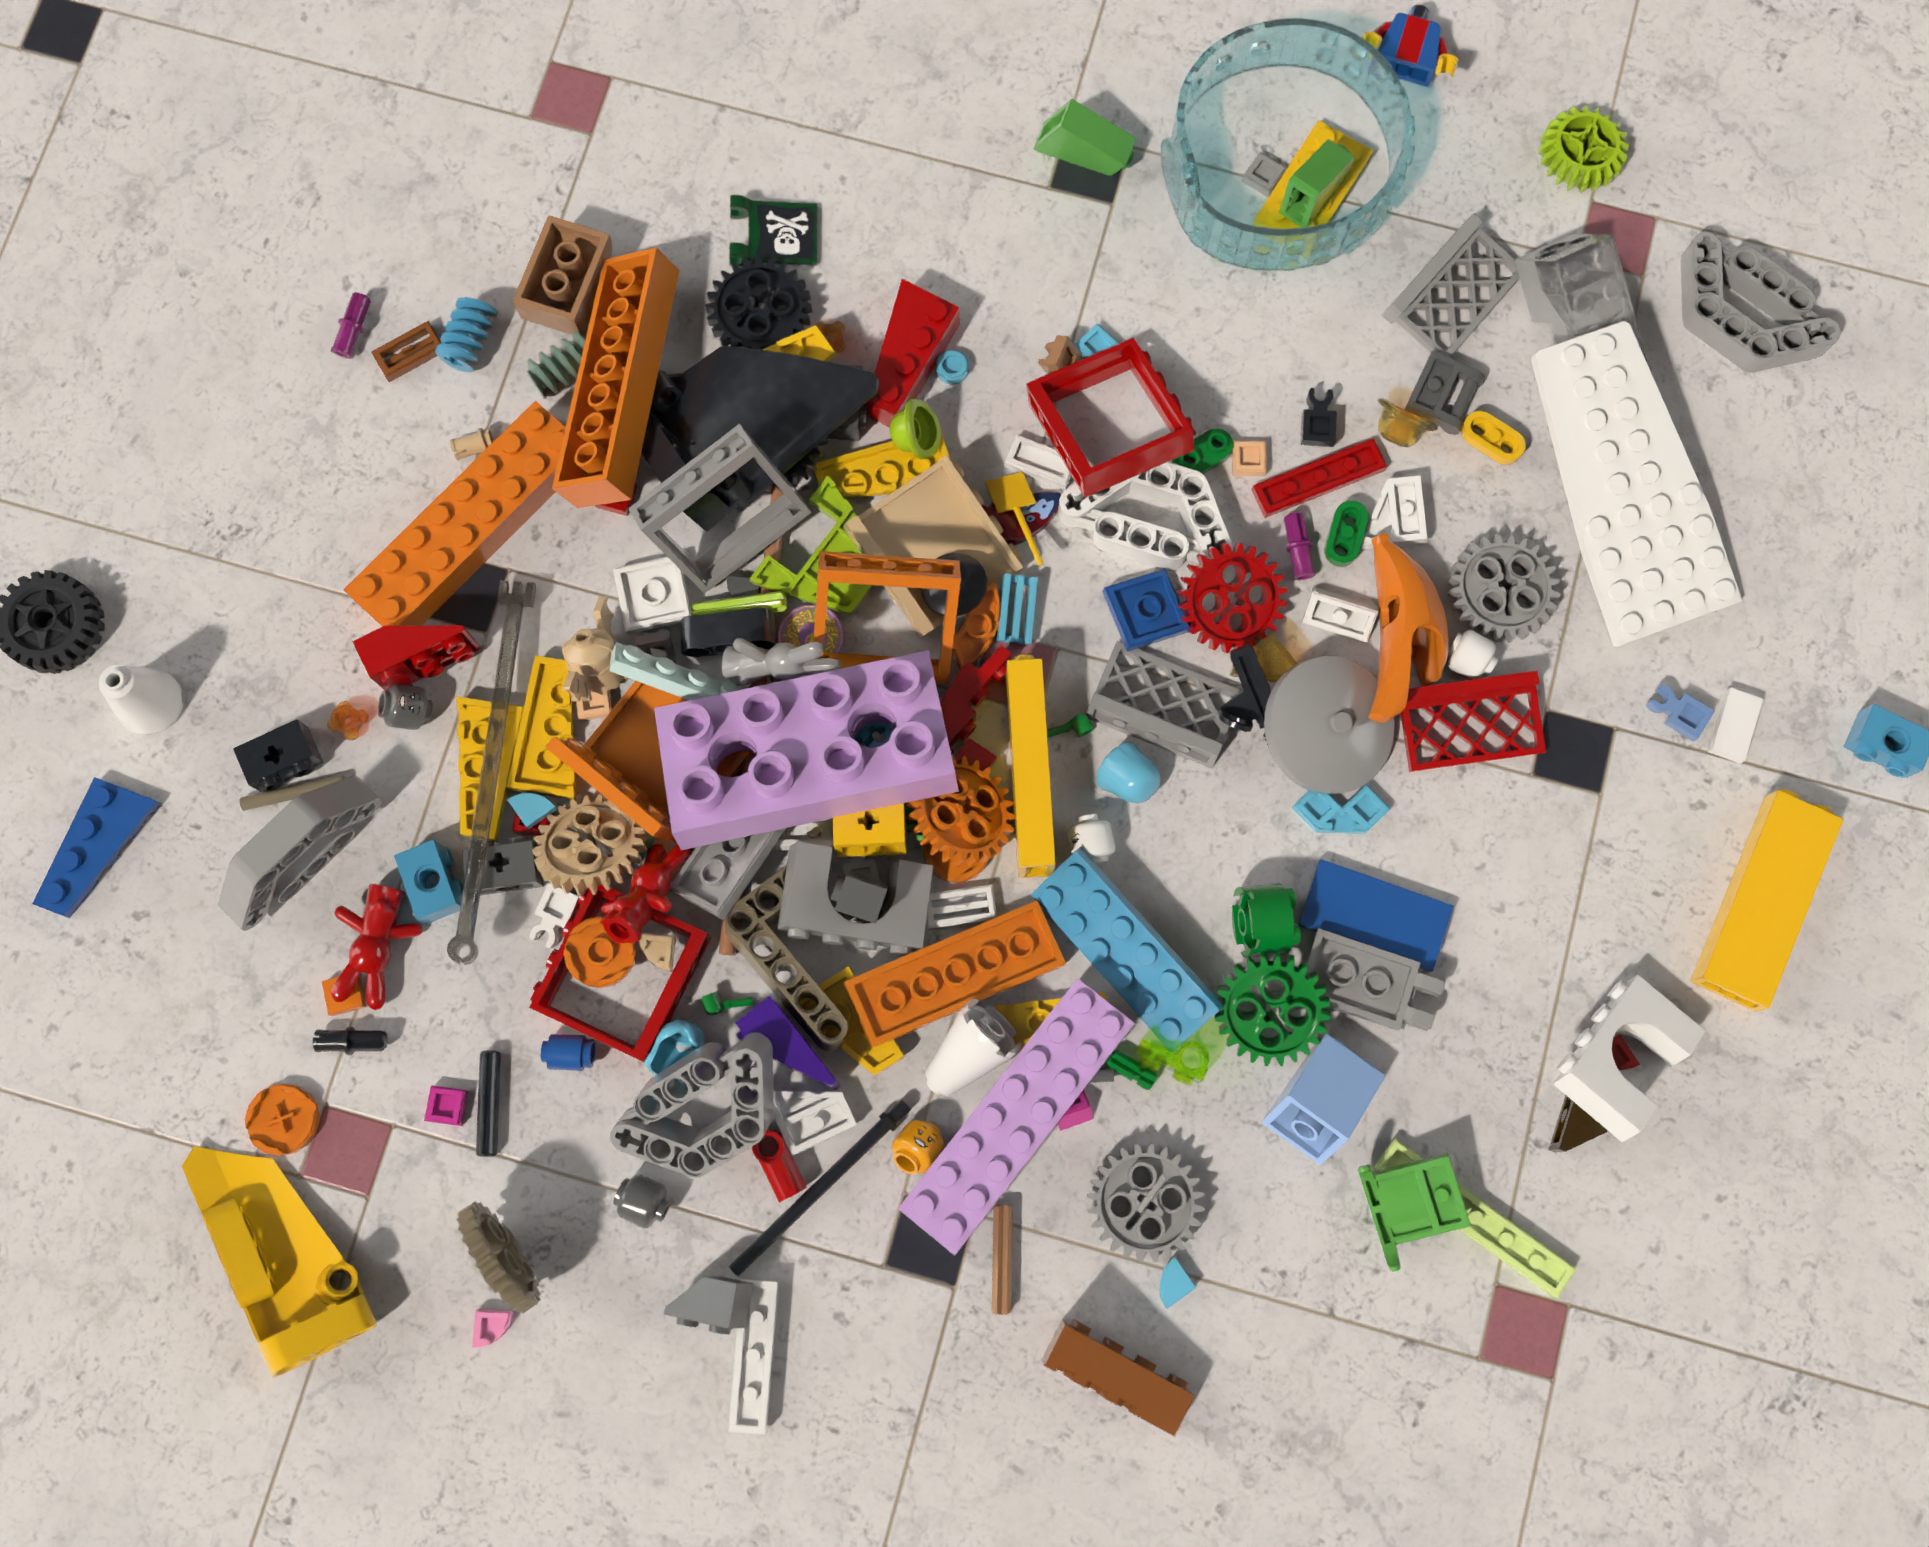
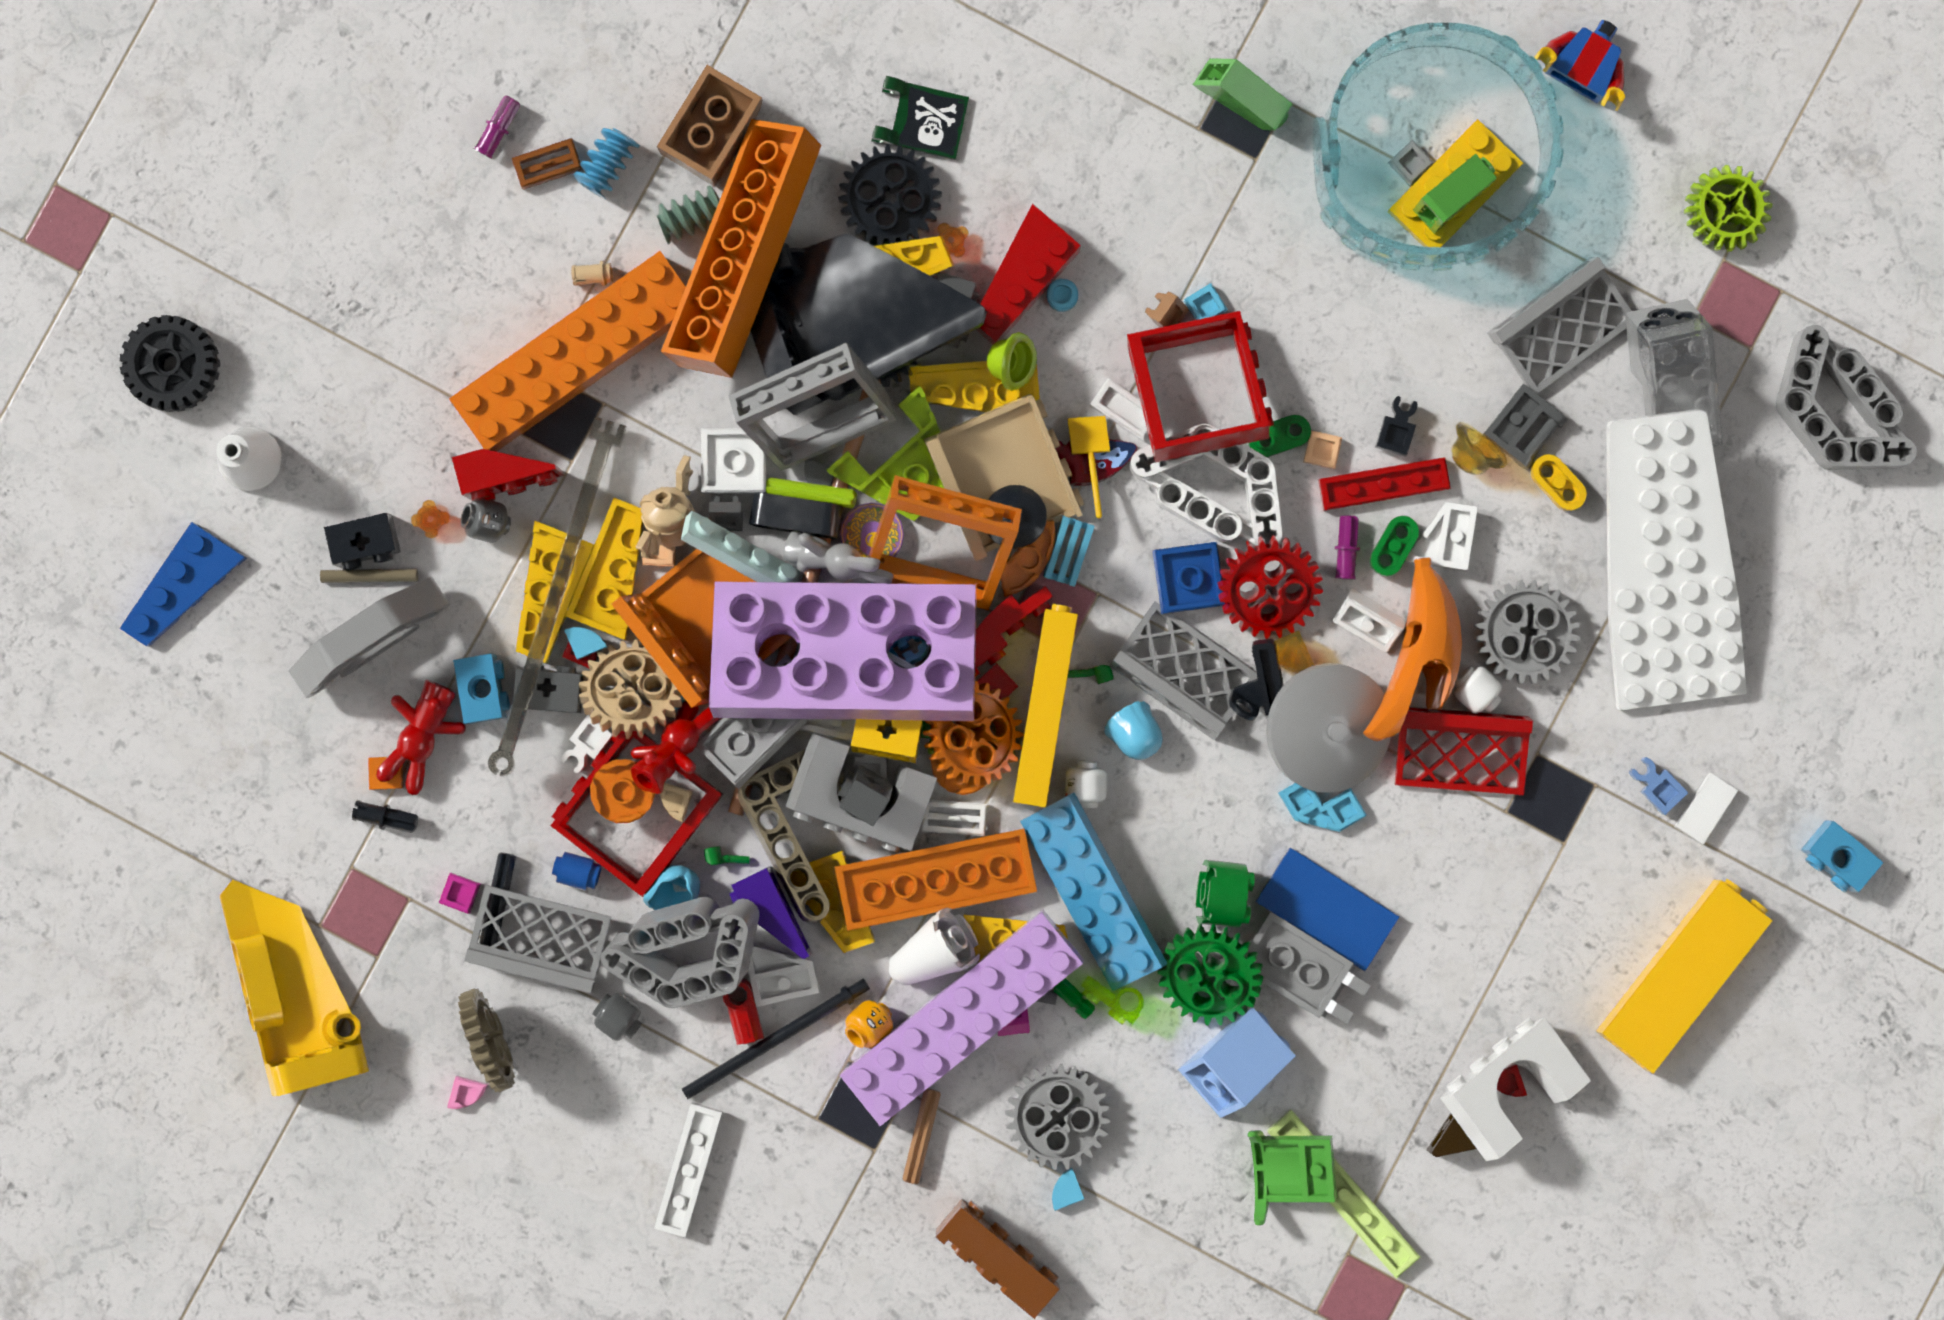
camera: 15 degrees right, 10 degrees up
(282, 1119) = (313, 872): orange tile -> none
(538, 1166) = (531, 966): none -> light grey fence
(715, 1302) = (664, 1118): slope -> none

